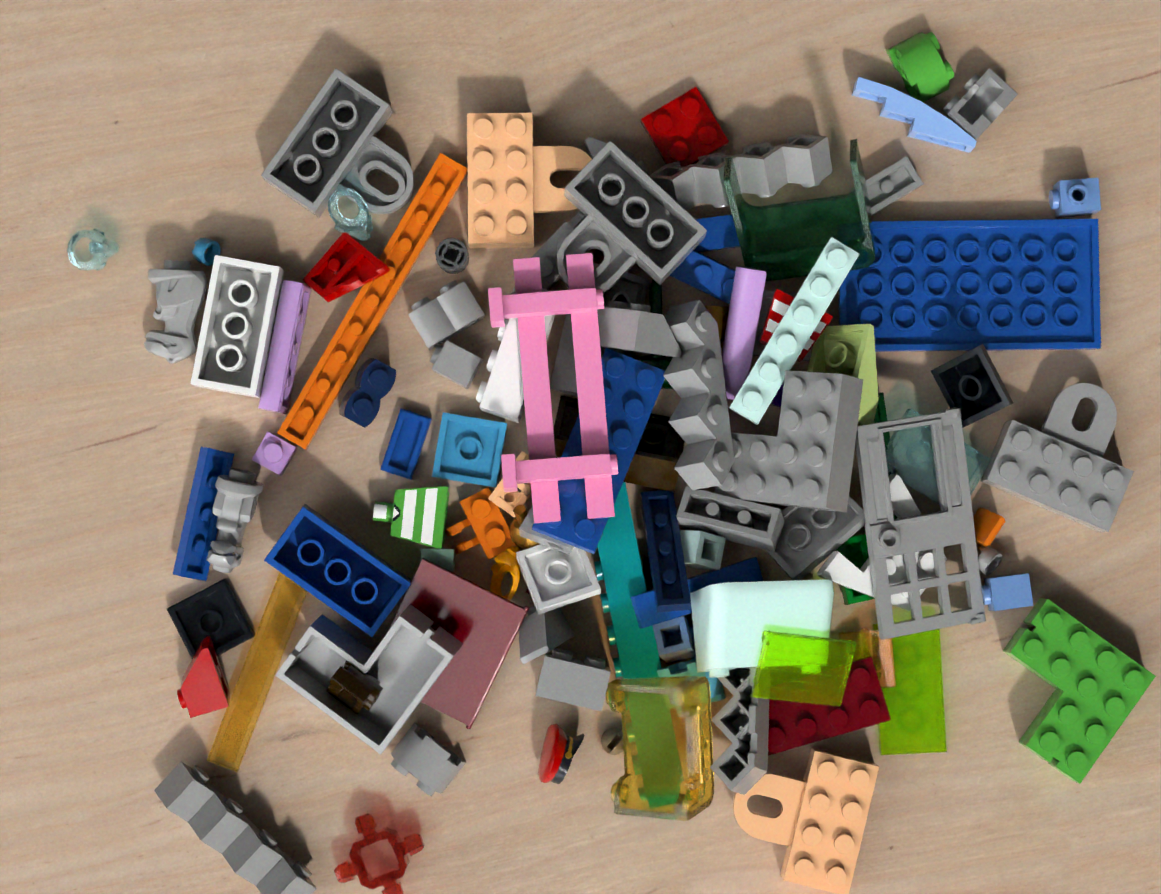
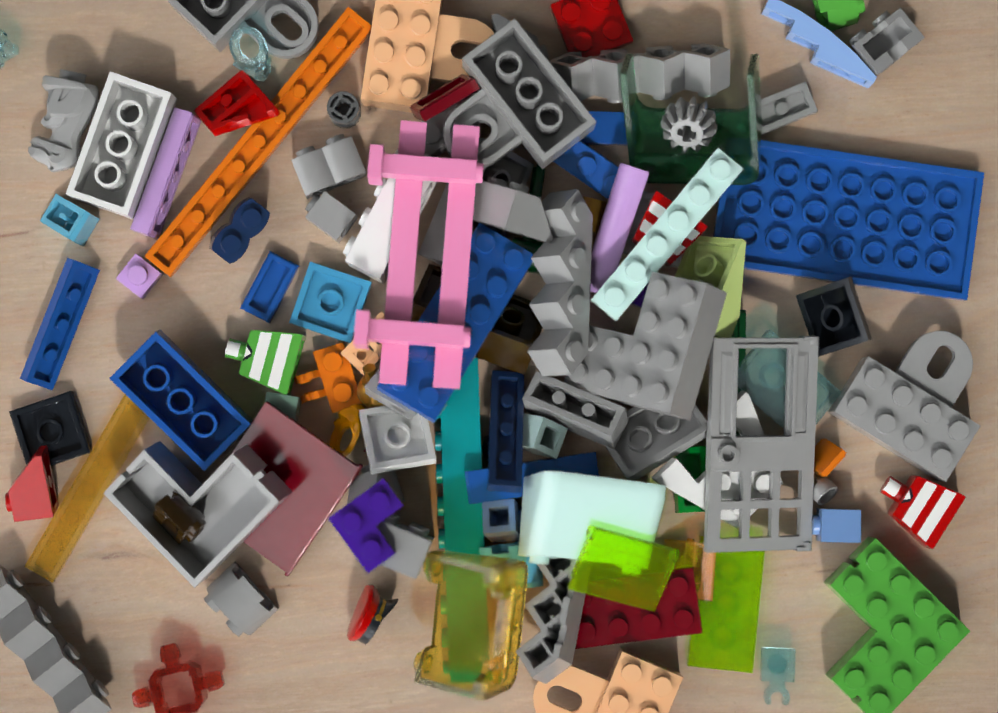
camera: 10 degrees right, 0 degrees up
(195, 408) = (69, 220): none -> medium azure slope
(200, 248) = (97, 64): dark azure hinge -> none
(235, 507) = (90, 323): light grey animal -> none
(536, 665) = (358, 523): none -> dark purple plate
(551, 229) = (444, 97): none -> dark red tile
(608, 736) = (421, 606): dark tan hinge -> none
(798, 217) = (689, 124): none -> light grey gear
(971, 742) = (777, 668): none -> clear light blue plate
(1075, 197) = (965, 148): medium blue brick -> none
(1088, 561) = (922, 507): none -> red torso

